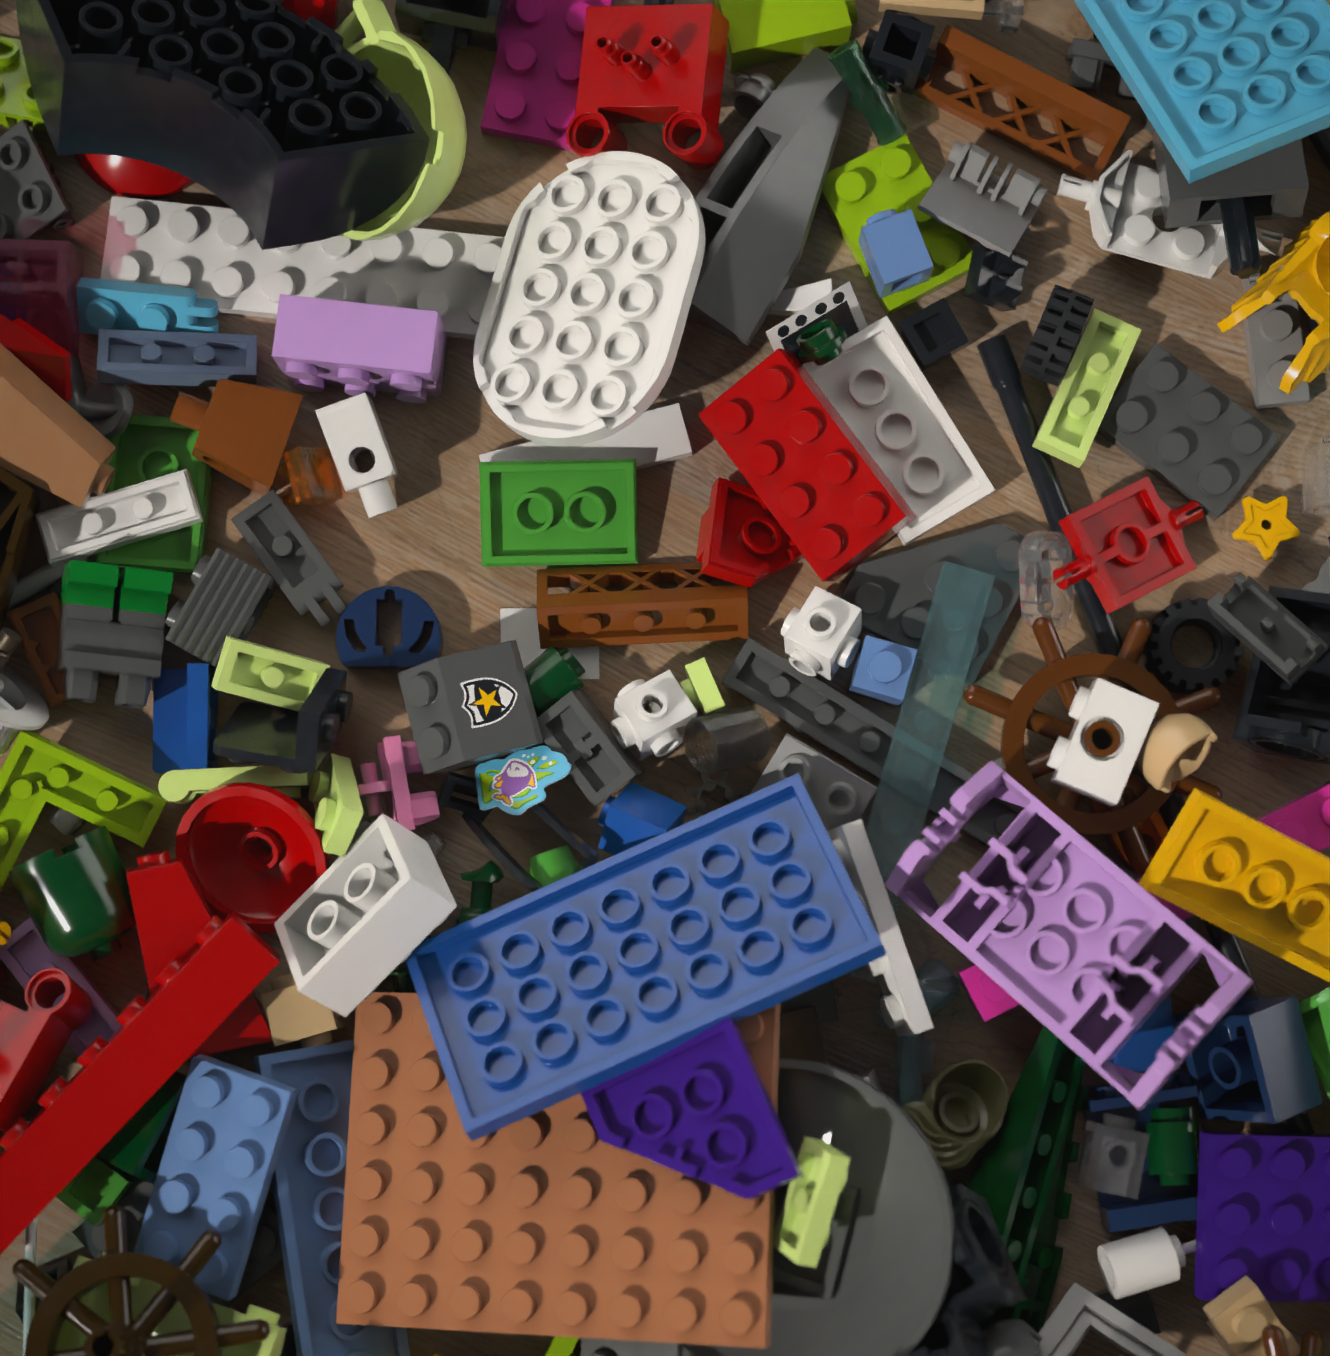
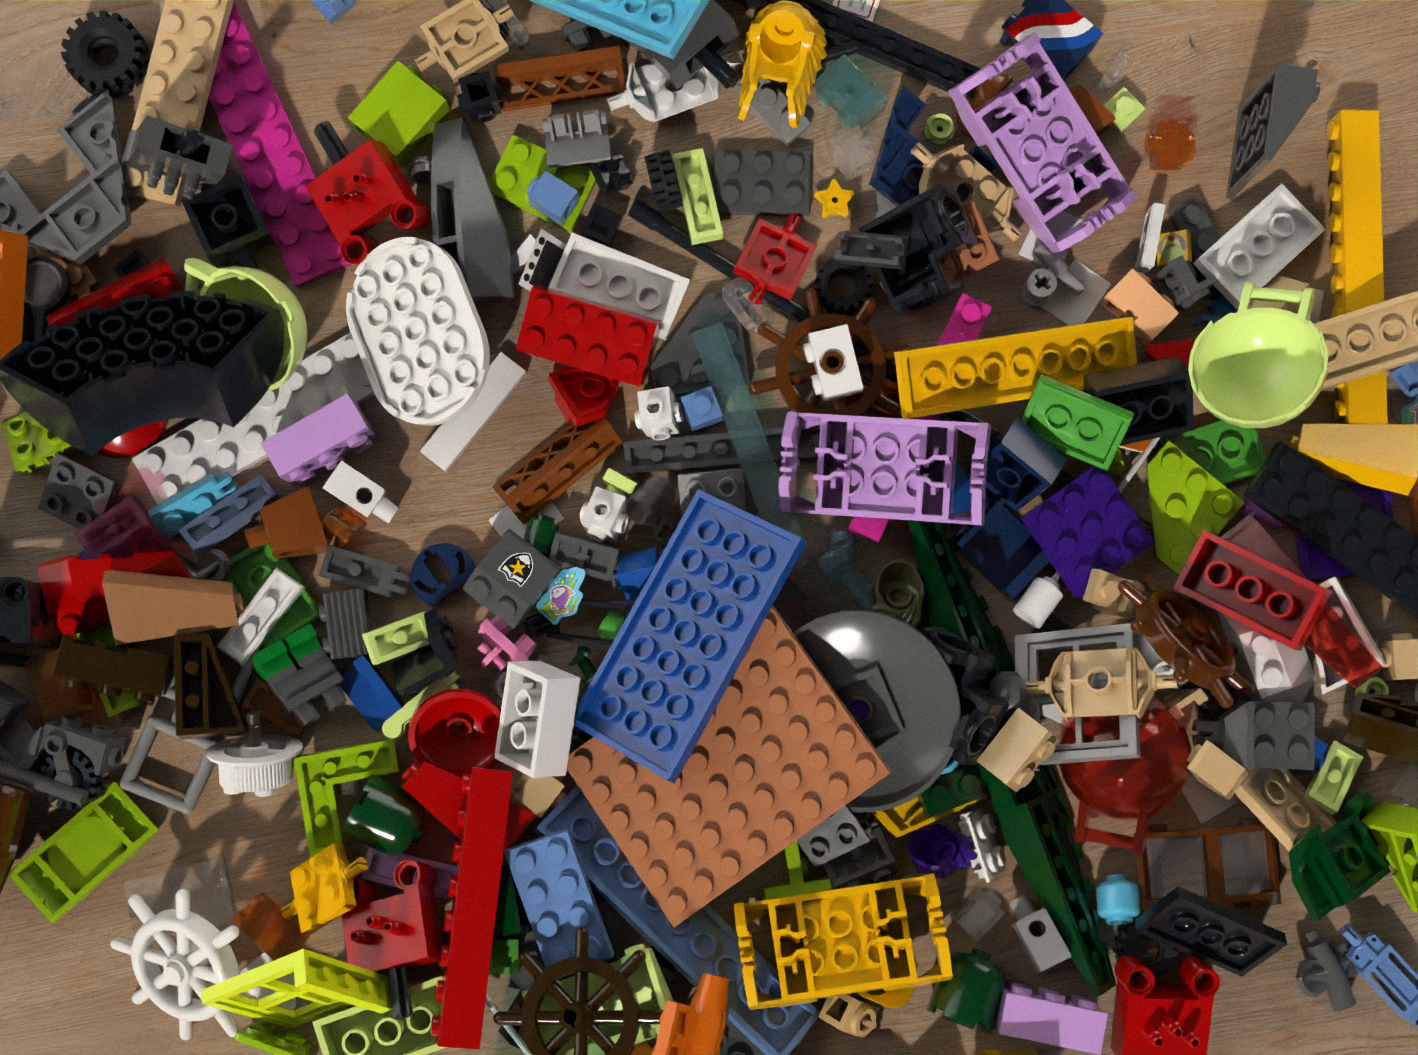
camera: 45 degrees left, 0 degrees up
(336, 804) = (480, 675): yellowish green plate -> none
(558, 512) = (481, 450): bright green tile -> none
(699, 1115) = (774, 686): dark purple plate -> none
(810, 1202) = (859, 687): yellowish green plate -> none
(821, 342) = (549, 269): dark green plate -> none
(867, 92) = (479, 127): clear green pin -> none
(903, 1000) = (831, 561): white plate -> none
(1112, 1156) = (988, 561): clear brick -> none
(1173, 1145) = (1012, 534): dark green brick -> none
(1174, 749) = (871, 341): tan hair -> none

